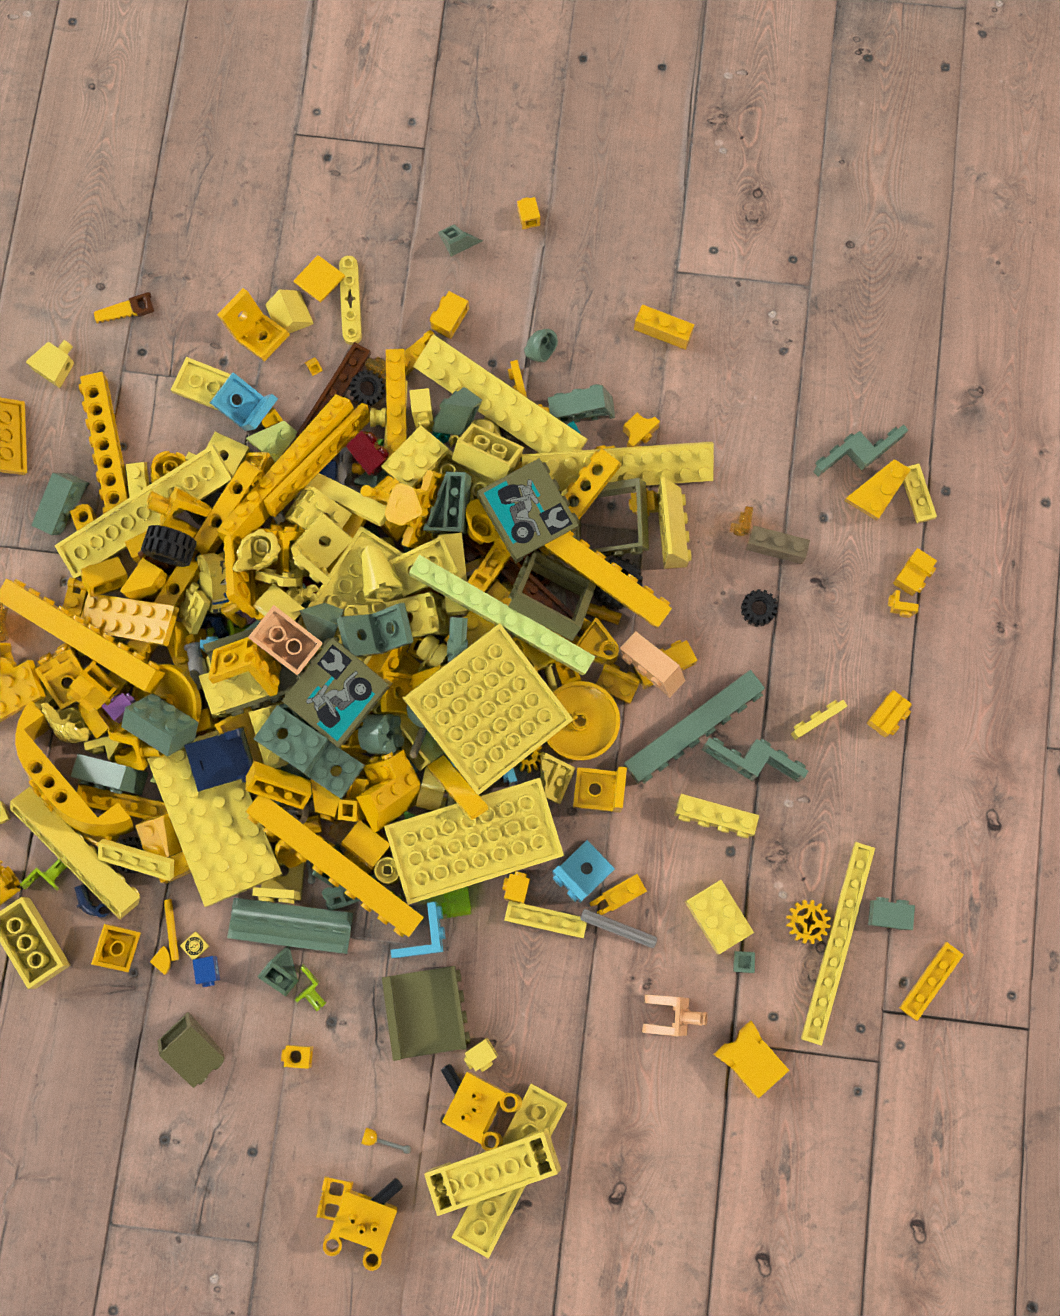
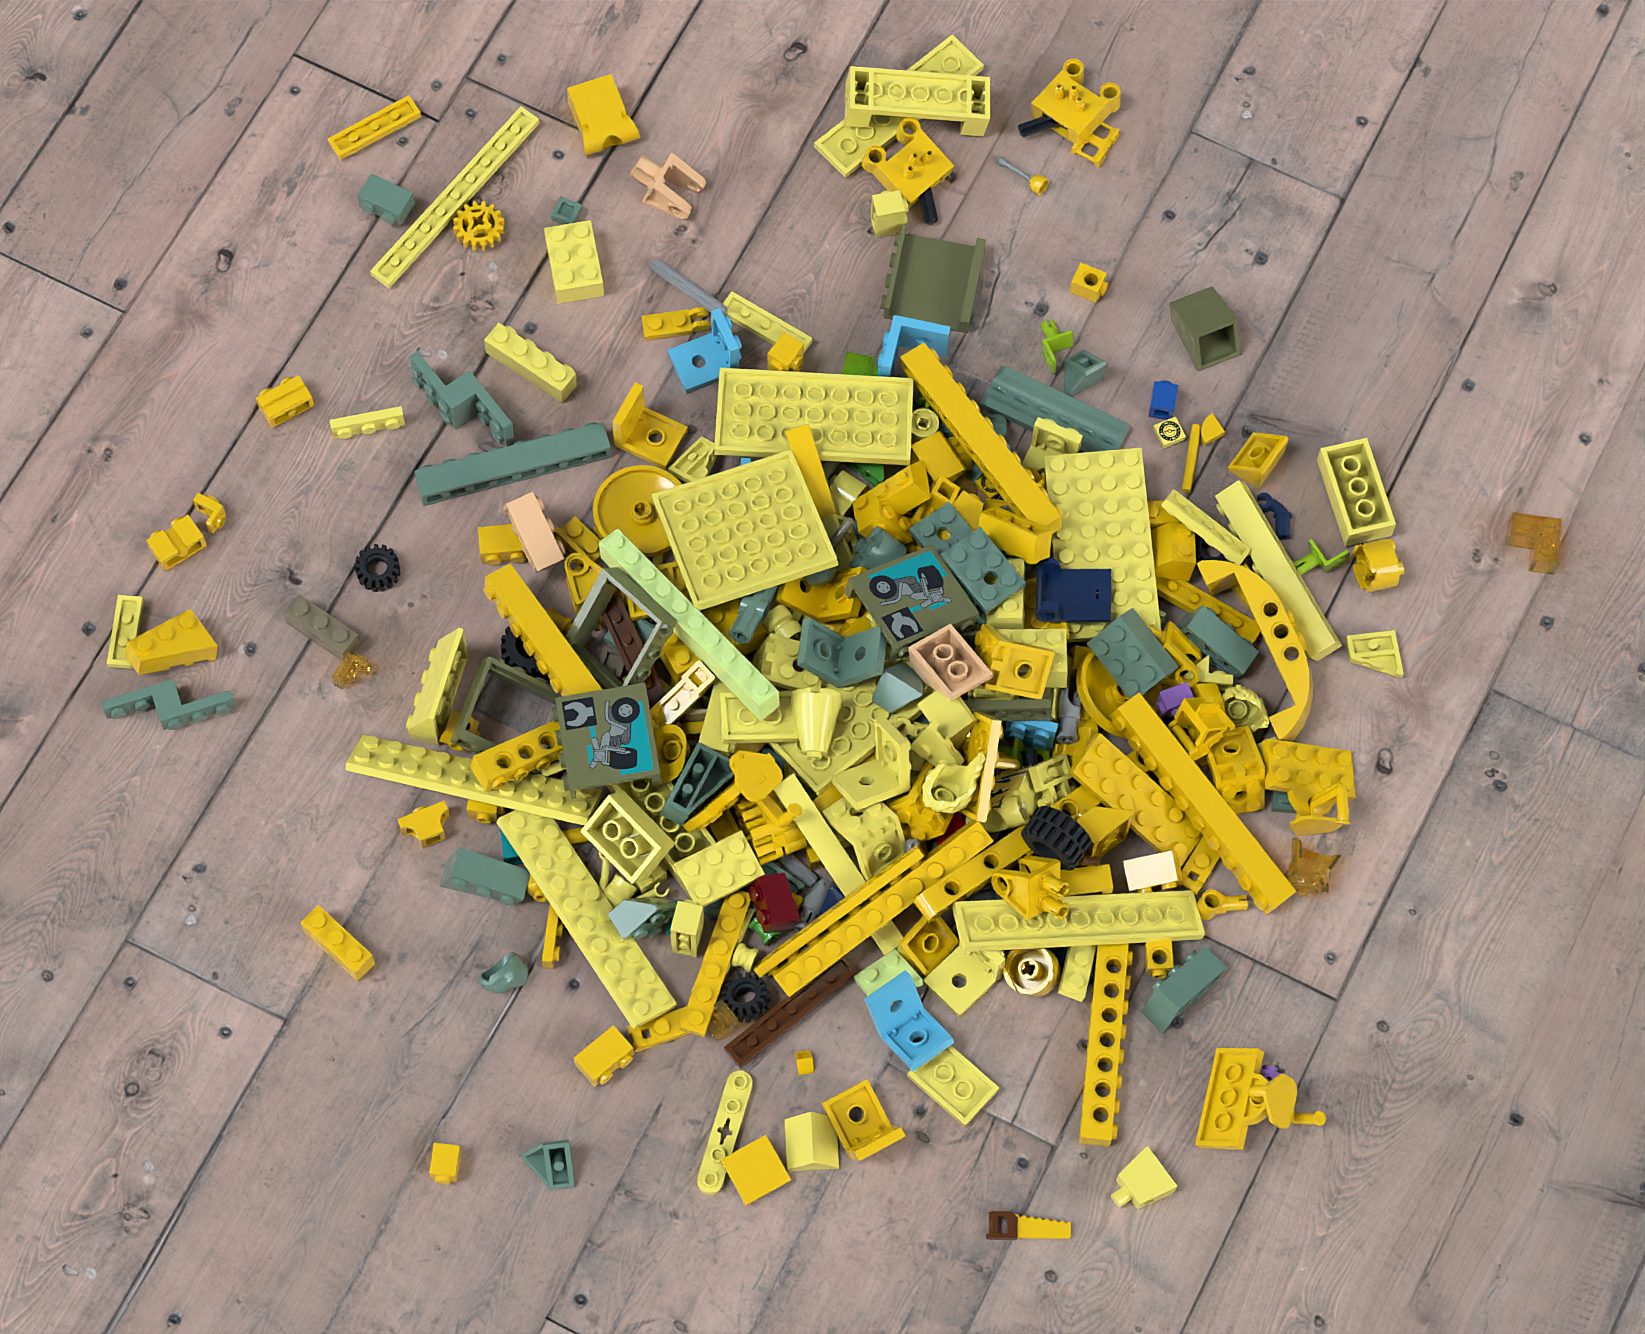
camera: 165 degrees left, 10 degrees down
(50, 575) = (1220, 904): none -> yellow pin

